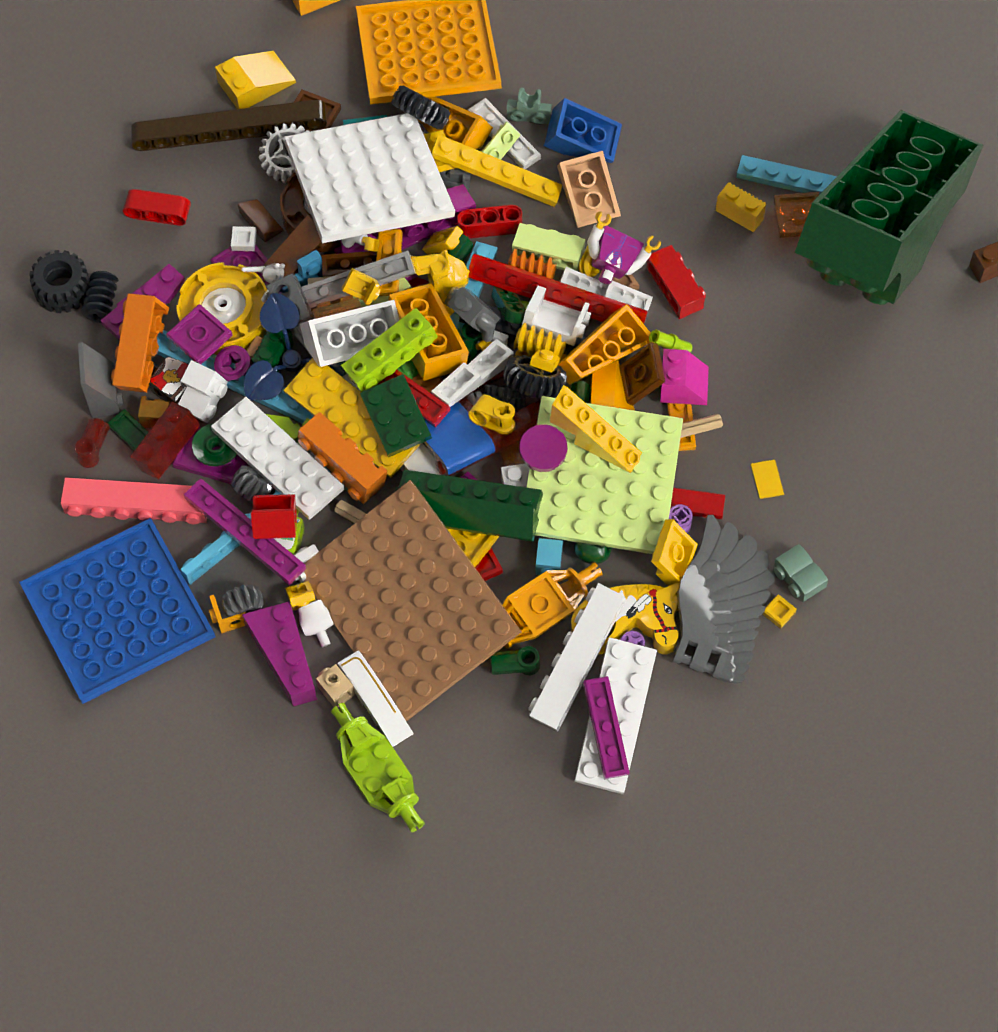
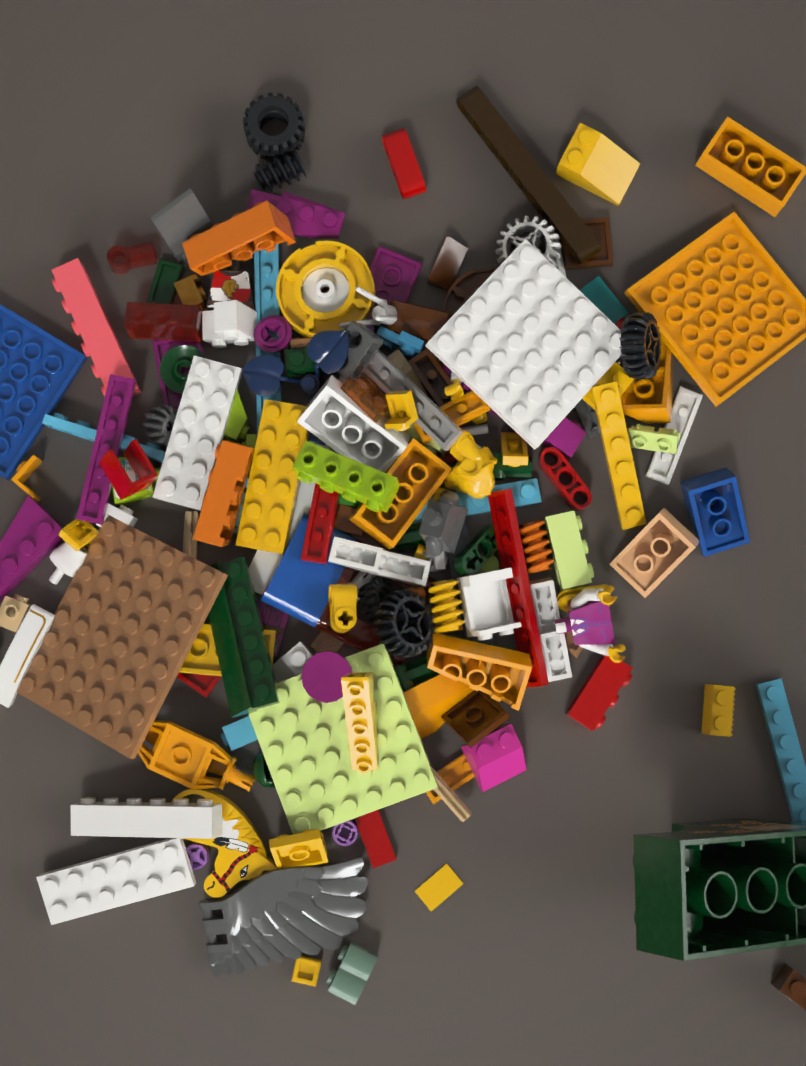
camera: 55 degrees right, 20 degrees up
(199, 334) = (279, 288): magenta tile -> none
(242, 600) = (45, 487): dark grey gear -> none
(243, 238) = (412, 263): white plate -> none
(396, 415) = (288, 519): dark green plate -> none
(512, 661) = (120, 762): dark green piece -> none
(529, 108) = (712, 445): sand green plate -> none
(545, 360) = (423, 624): yellow plate -> none
(606, 727) = (92, 881): magenta tile -> none
(669, 341) = (524, 725): lime pin -> none
(792, 212) = (744, 770): clear orange plate -> none

